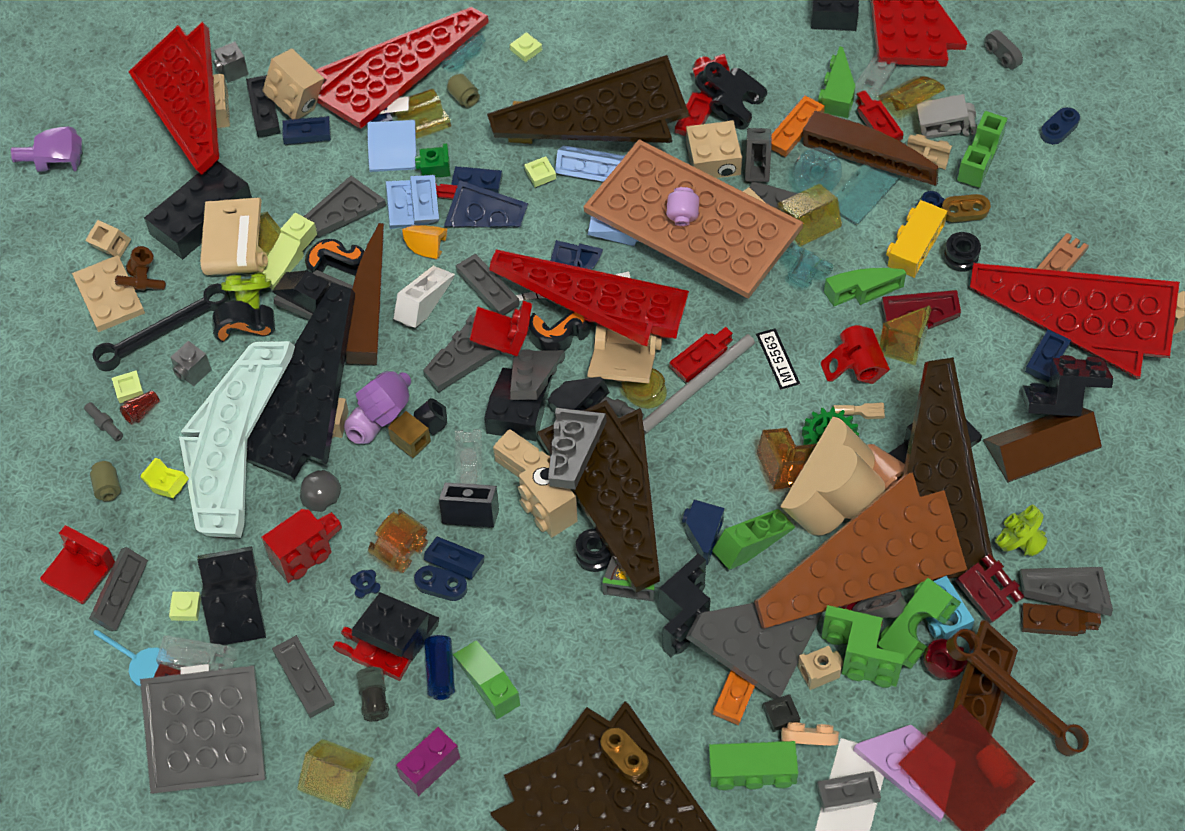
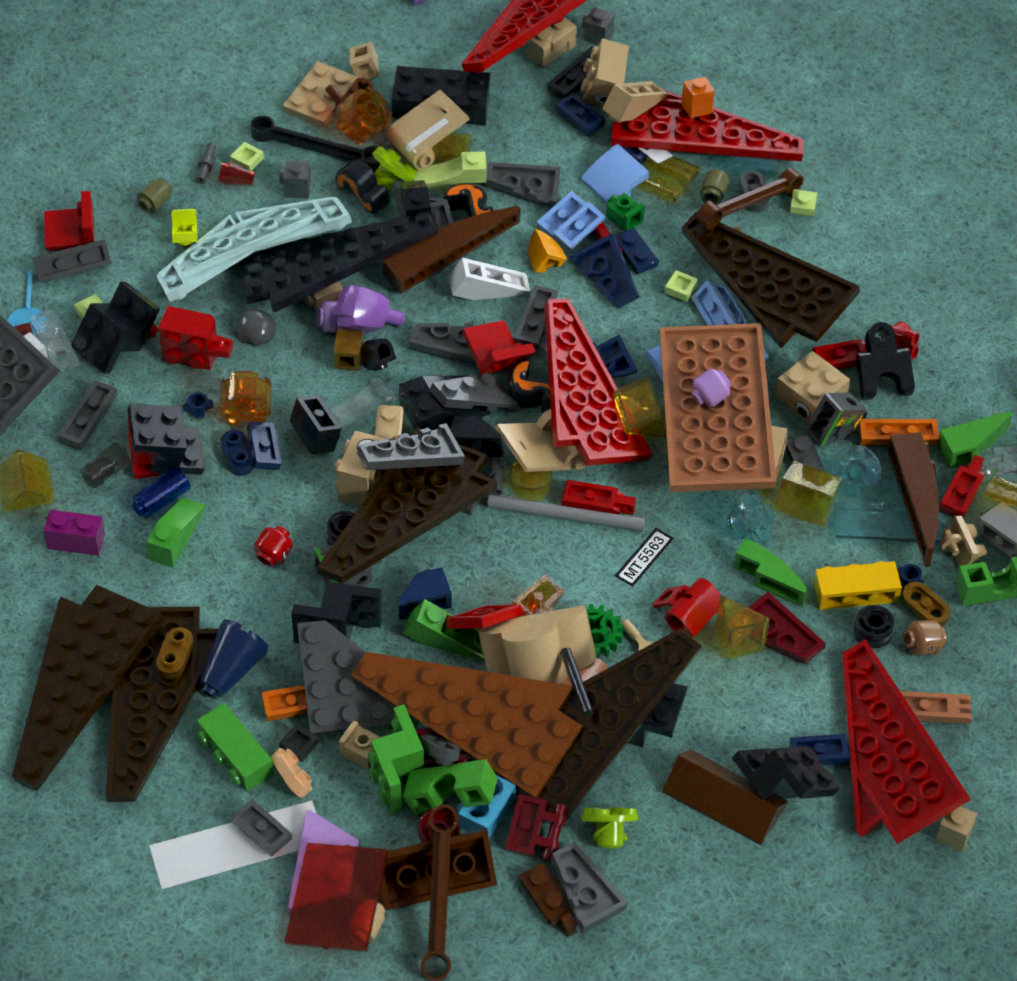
camera: 50 degrees right, 5 degrees down
(173, 273) = (363, 115): none -> clear orange brick
(337, 85) = (632, 99): none -> tan slope
(373, 42) = (697, 97): none -> orange brick
(490, 69) = (757, 180): none -> dark grey plate
(505, 73) = (711, 214): none -> reddish brown piece
(566, 612) = (273, 546): none -> red head
(645, 269) = (640, 409): none -> clear yellow slope
(663, 713) = (230, 658): none -> dark blue cone
(776, 496) = (484, 616): none -> red tile
(908, 466) = (577, 682): none -> black bar
(996, 225) = (925, 637): none -> medium nougat head

